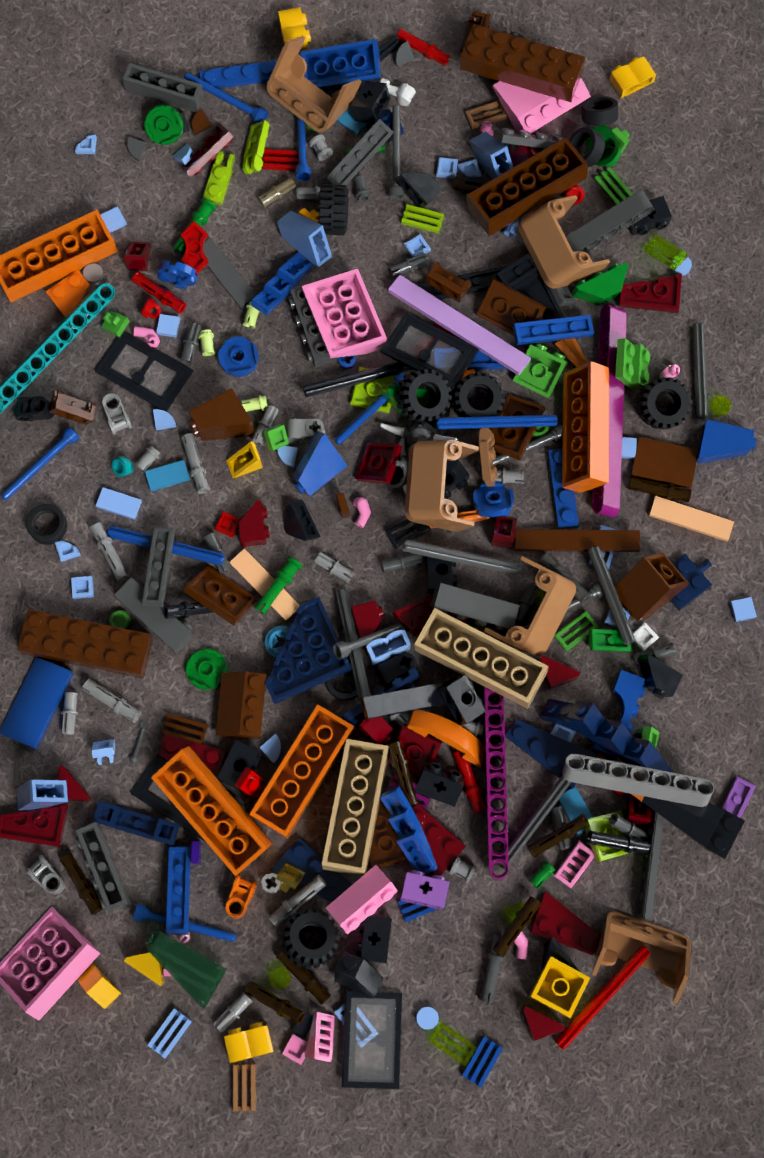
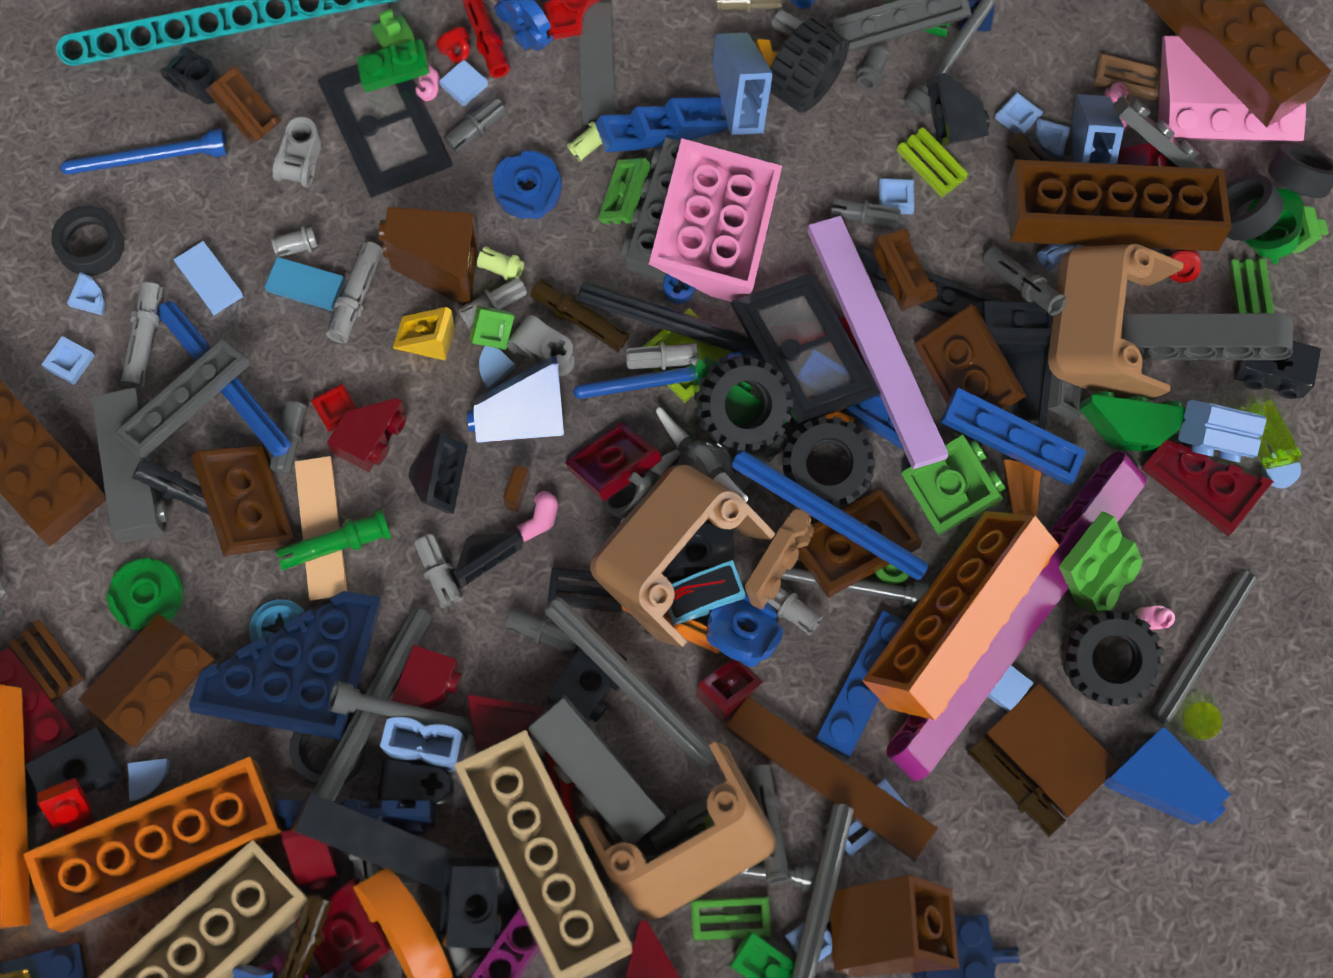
camera: 30 degrees right, 5 degrees down
(120, 619) = (80, 441): bright green tile -> none
(122, 466) = (252, 230): teal tile -> none
(129, 339) = (393, 65): none -> green plate
(163, 419) = (357, 204): light blue tile -> none
(207, 342) = (498, 138): yellowish green pin -> none
(290, 327) = (629, 191): none -> bright green tile
(310, 403) = (569, 308): none -> dark brown pin
(349, 544) = (483, 553): none -> black slope
(365, 398) = (660, 356): none -> light grey axle
(466, 493) = (705, 592): none -> black slope
(525, 253) = (1046, 297): none -> dark grey pin
(644, 264) = (1221, 429): none -> medium blue brick
(691, 518) = (1036, 866): light nougat tile -> none

